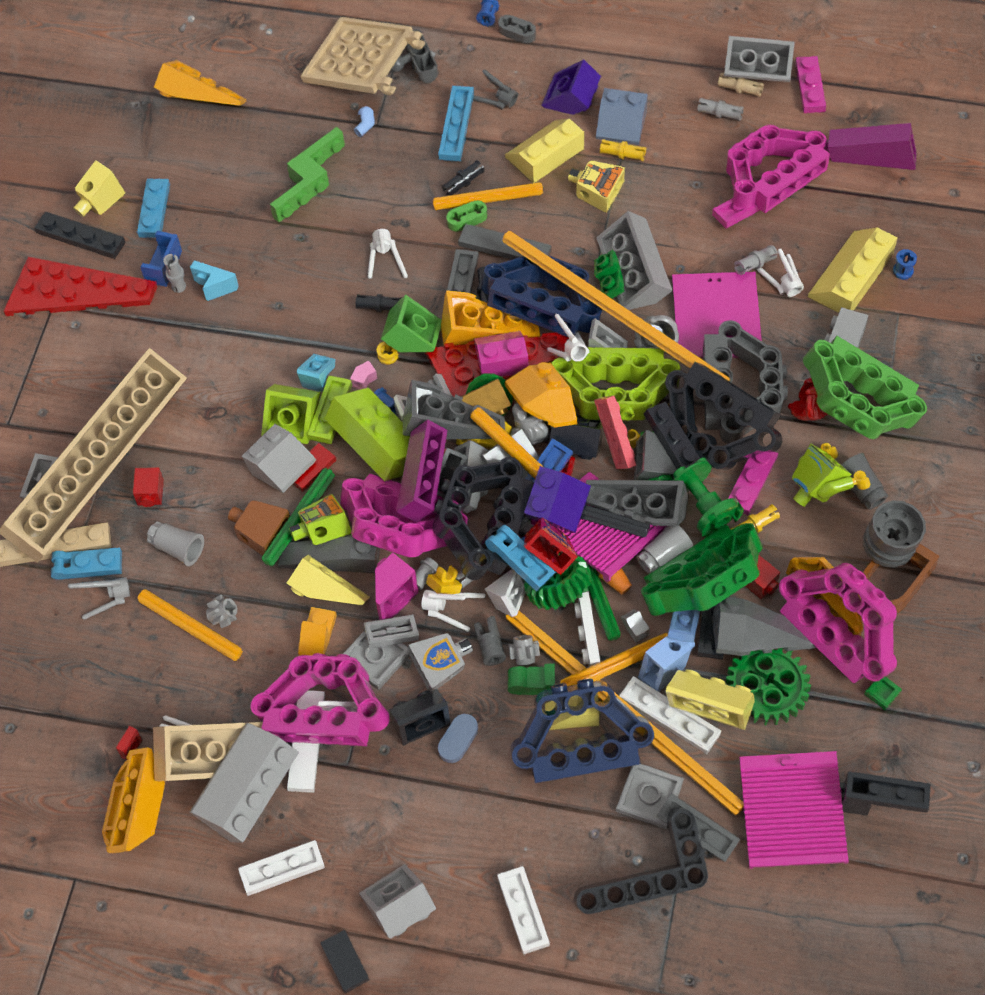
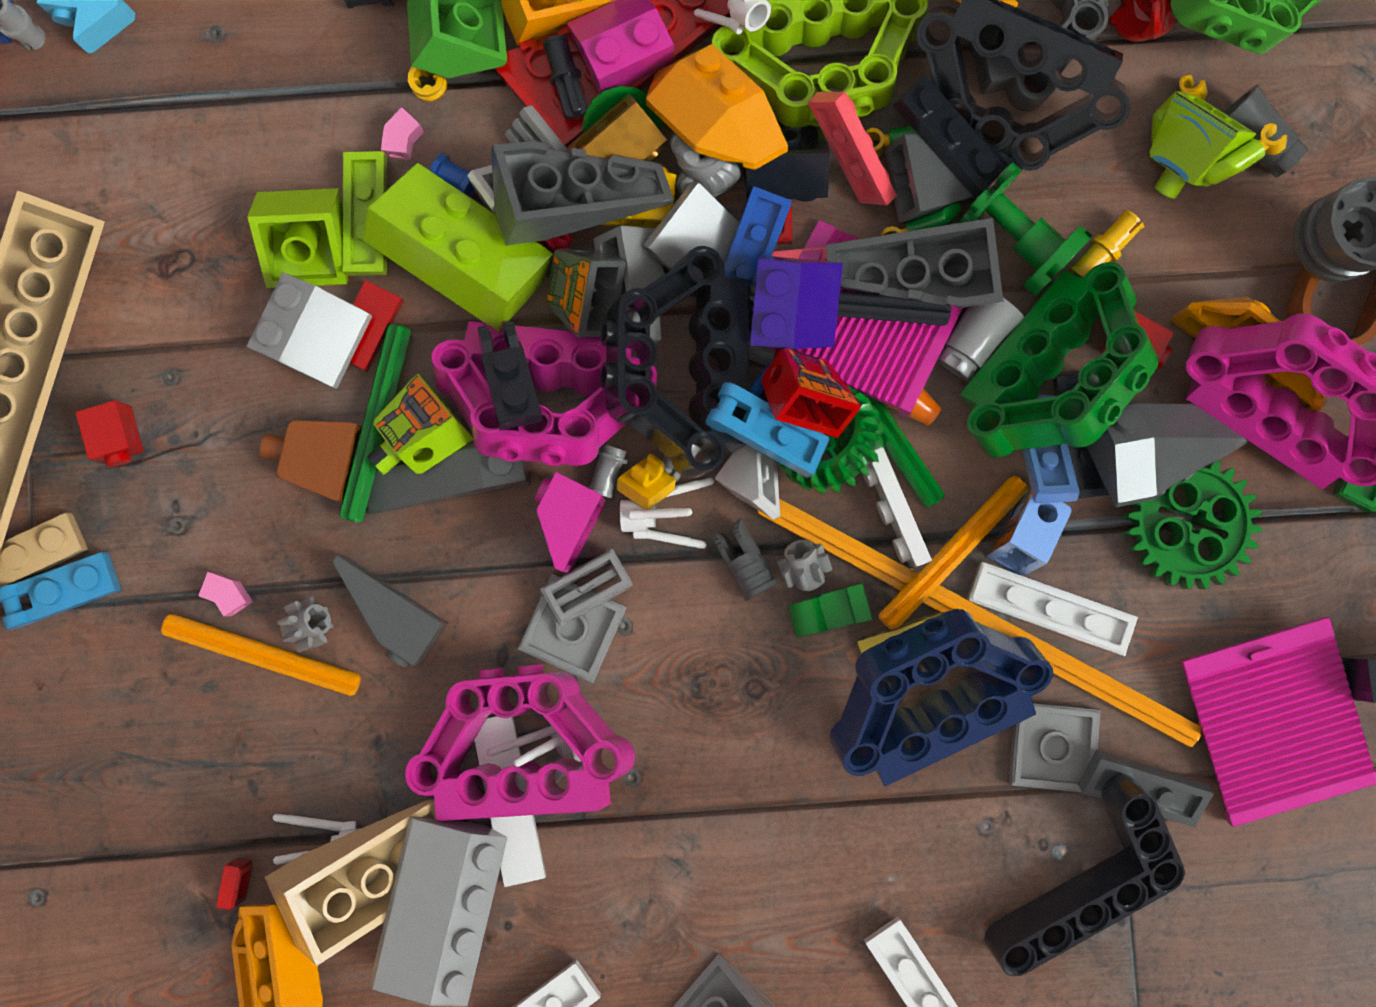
camera: 20 degrees left, 25 degrees up
(116, 588) = (124, 624): light grey plant -> none
(176, 542) = (190, 521): light grey plant -> none
(181, 586) = (225, 592): none -> bright pink piece
(277, 625) = (393, 617): none -> dark grey slope
(315, 371) = (319, 147): medium azure slope -> none
(316, 631) = (468, 616): light orange slope -> none
(320, 582) = (455, 536): light yellow slope -> none
(382, 500) = (509, 380): none -> black hinge
(420, 716) = (673, 720): black slope -> none
(422, 471) = (561, 311): magenta brick -> none
(439, 659) = (678, 617): light grey torso -> none
(458, 738) = (741, 733): sand blue tile -> none
(464, 363) = (565, 76): none -> black axle
(502, 438) = (687, 218): light orange axle -> none
(635, 625) = (963, 473): light grey piece -> none
(710, 698) = (1125, 584): light yellow slope -> none
(753, 479) = (1079, 181): dark pink plate -> none

